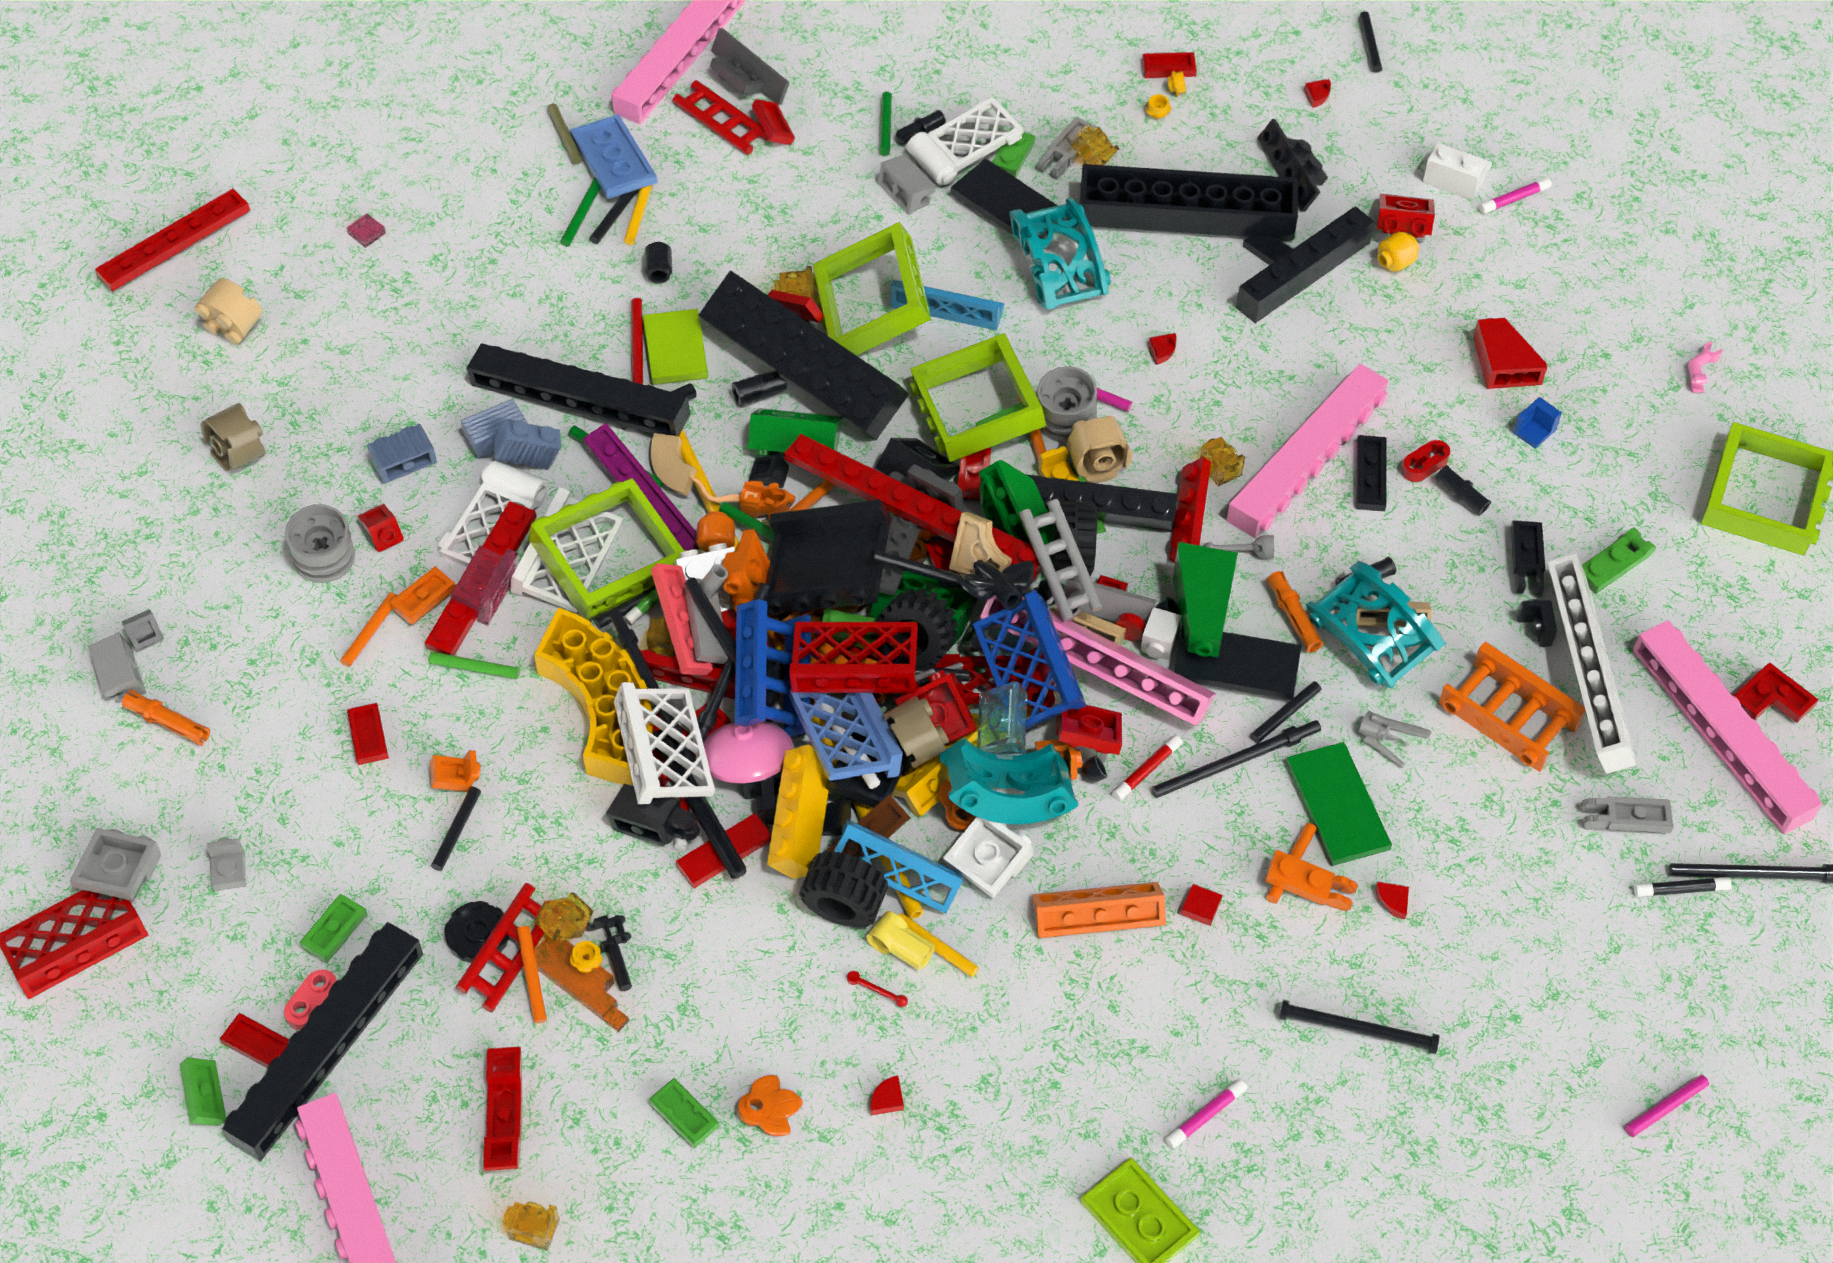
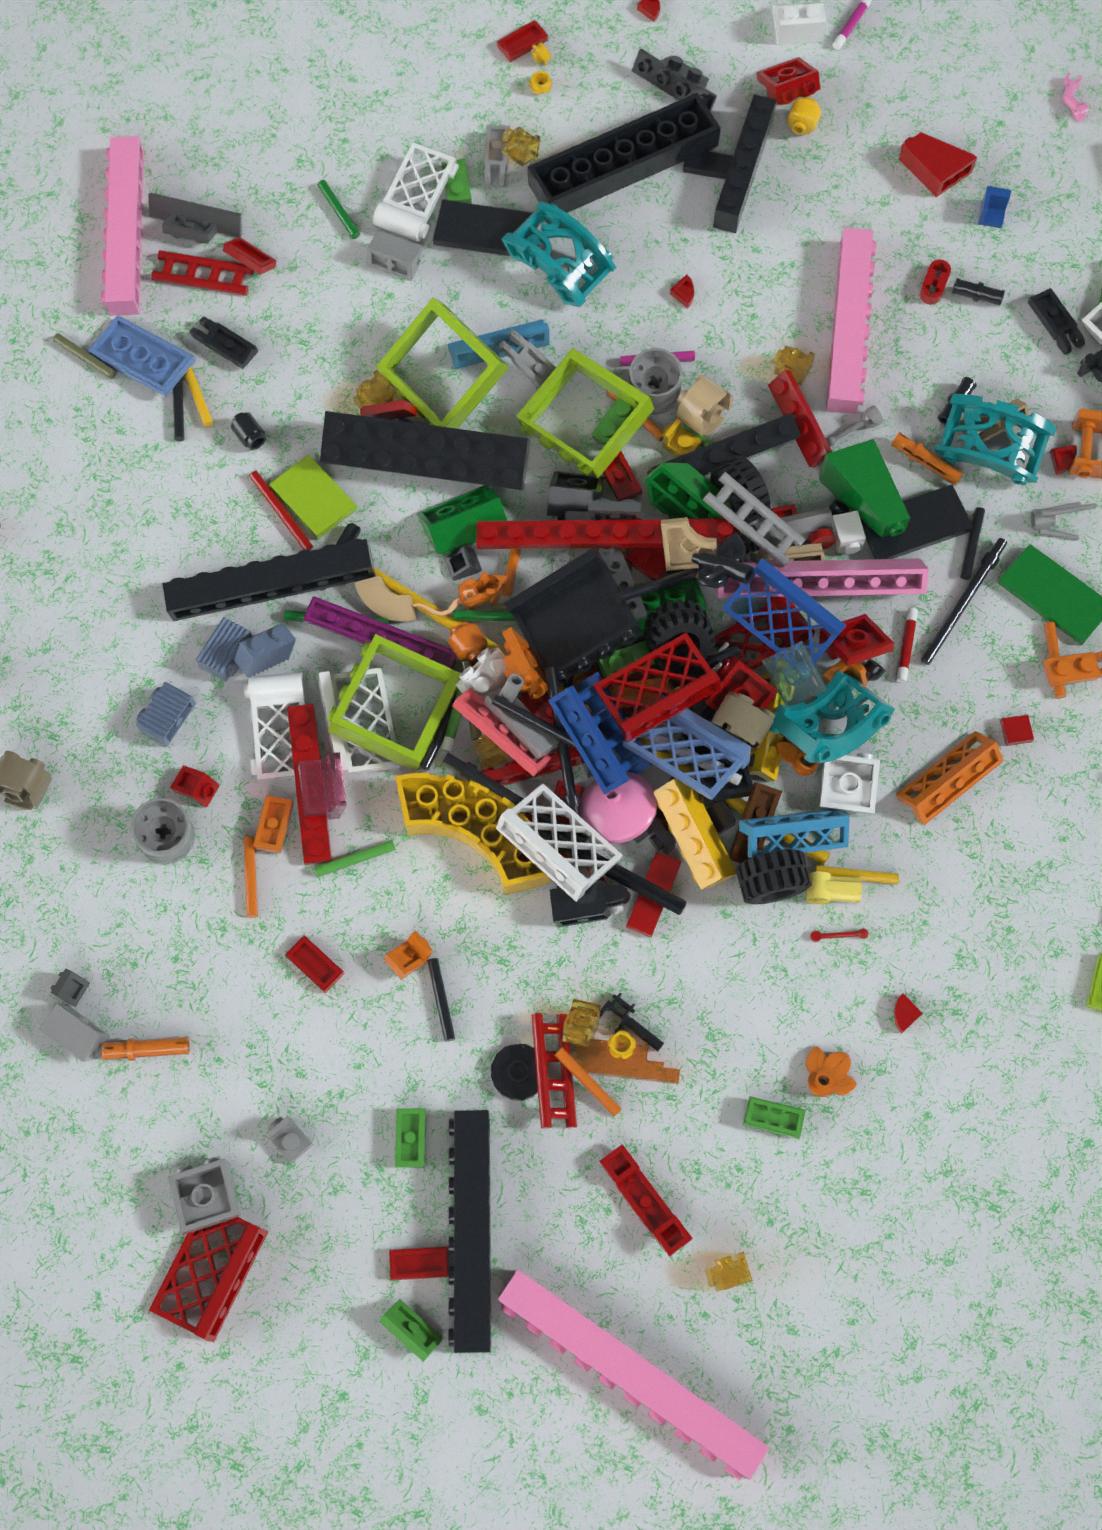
camera: 30 degrees left, 15 degrees up
(308, 996) = (434, 1203): coral plate -> none
(580, 213) = (150, 420): green bar -> none
(696, 182) = (225, 342): none -> black hinge
(758, 387) = (405, 497): black hinge -> none
(919, 125) = (370, 198): black axle -> none
(958, 325) = (528, 359): none -> light grey hinge
(970, 641) = (715, 613): dark grey tile -> none
(1371, 473) = (903, 313): black tile -> none
(1438, 681) = (1063, 458): none -> red tile

